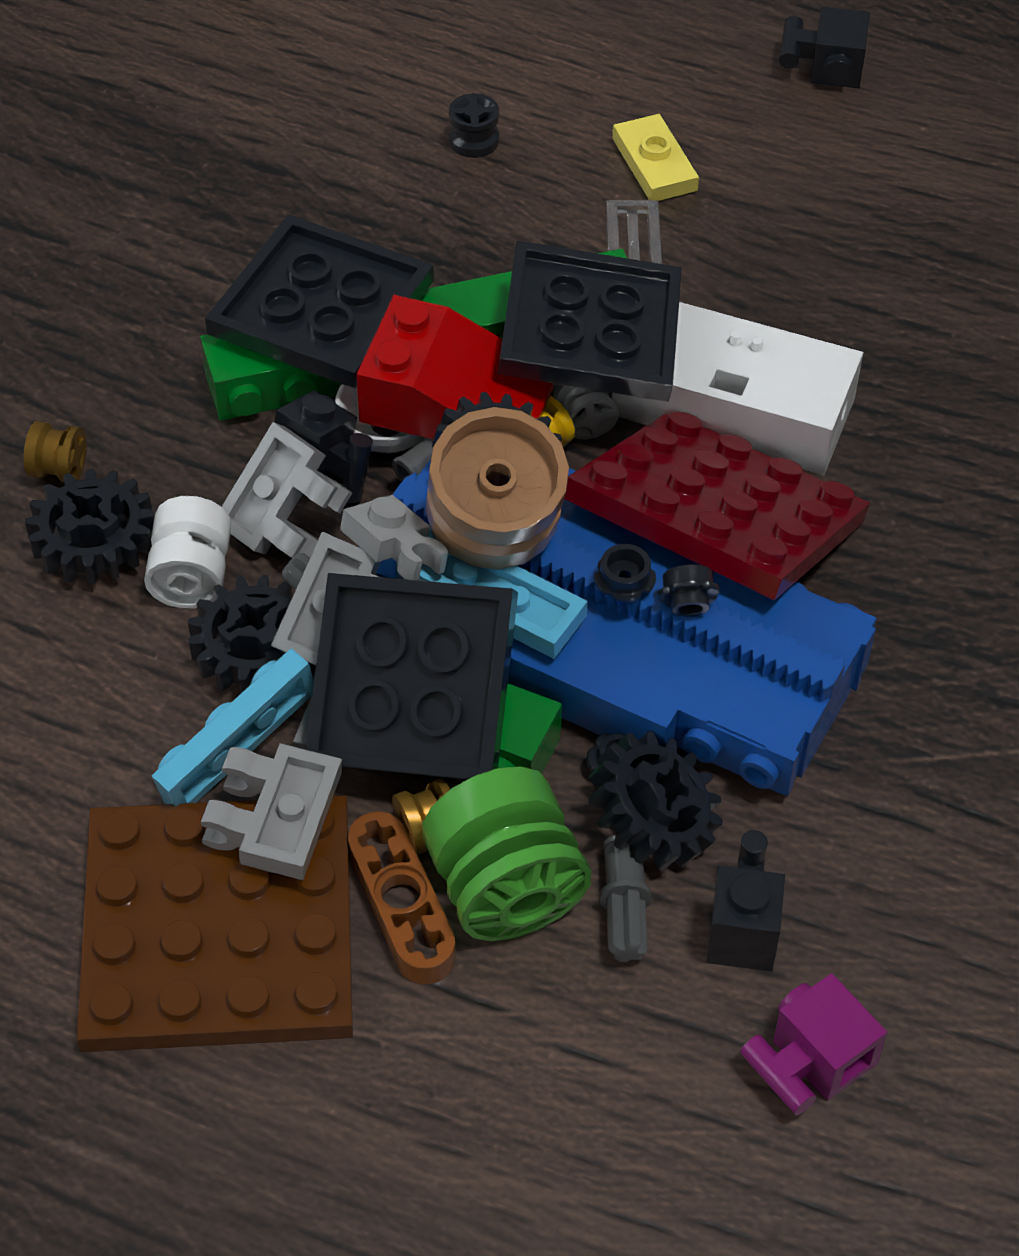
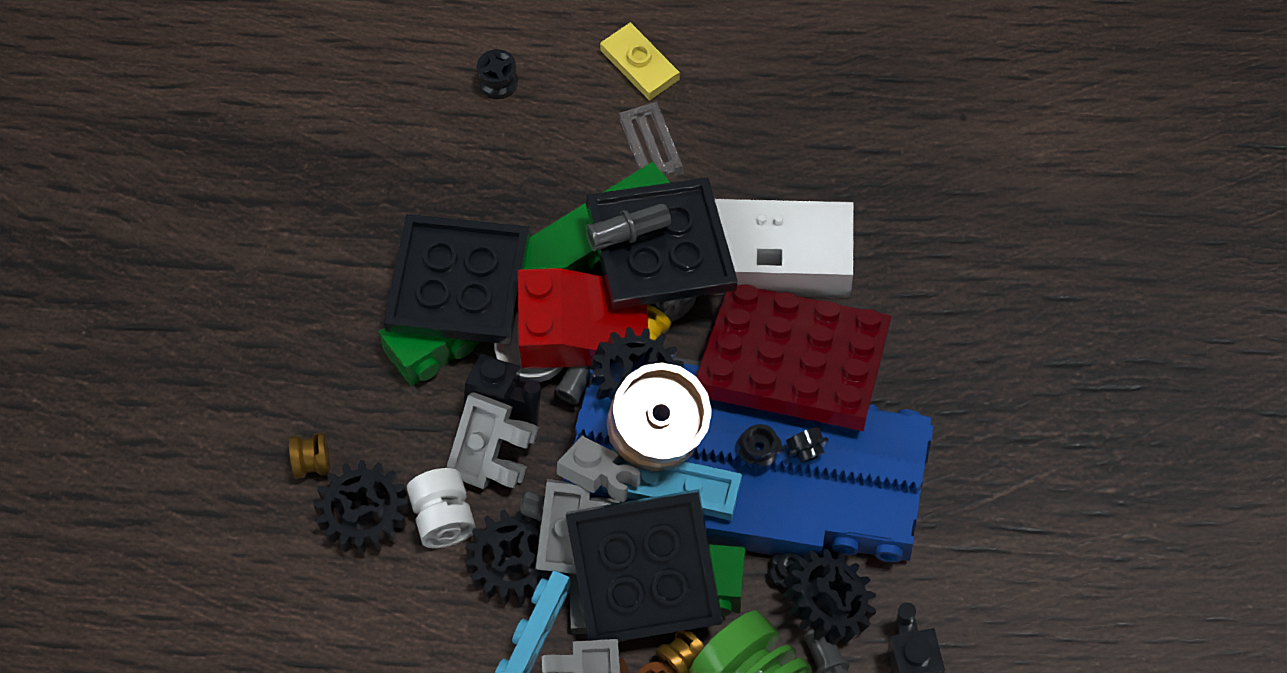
camera: 15 degrees left, 10 degrees up
(552, 280) = (627, 226): none -> dark grey axle

